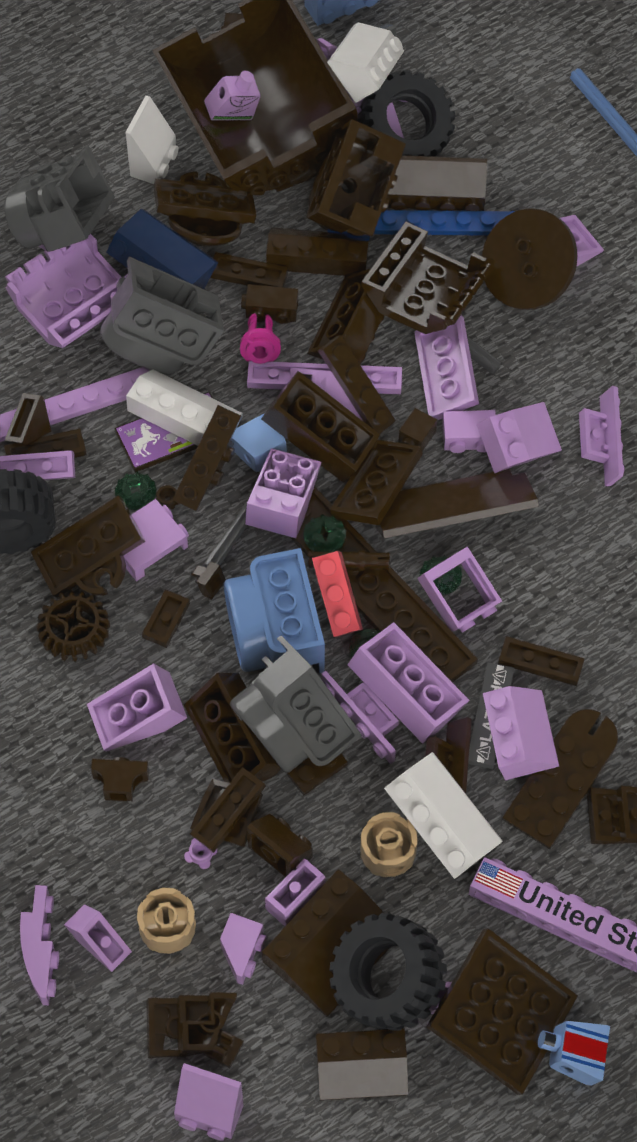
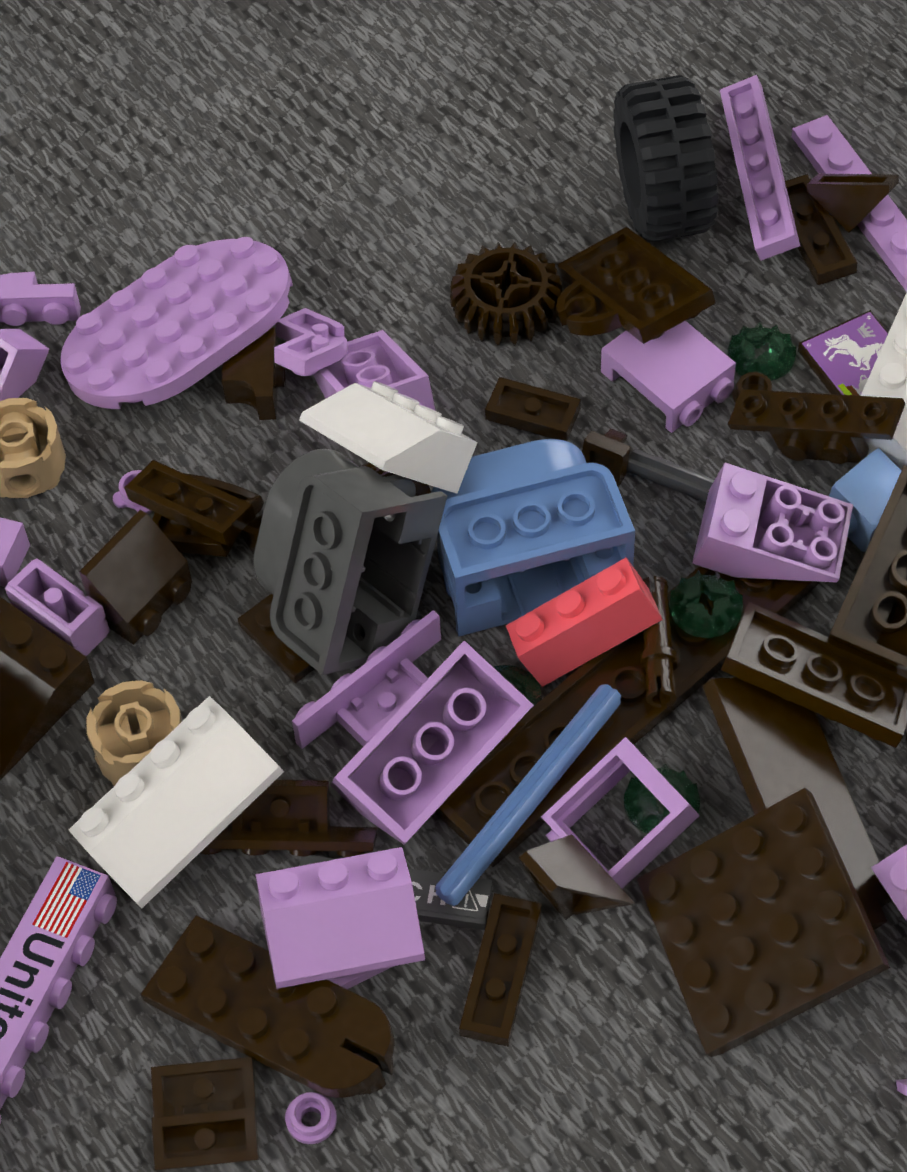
camera: 90 degrees right, 5 degrees down
(73, 823) = (176, 323): none -> lavender plate
(100, 734) = (311, 342): none -> lavender plate
(217, 673) = (395, 434): none -> white slope
(442, 634) = (527, 795): none -> medium blue axle
(498, 615) = (572, 878): none -> dark brown slope
(529, 526) = (761, 923): none -> dark brown plate
(626, 754) = (307, 1103): none -> lavender plate

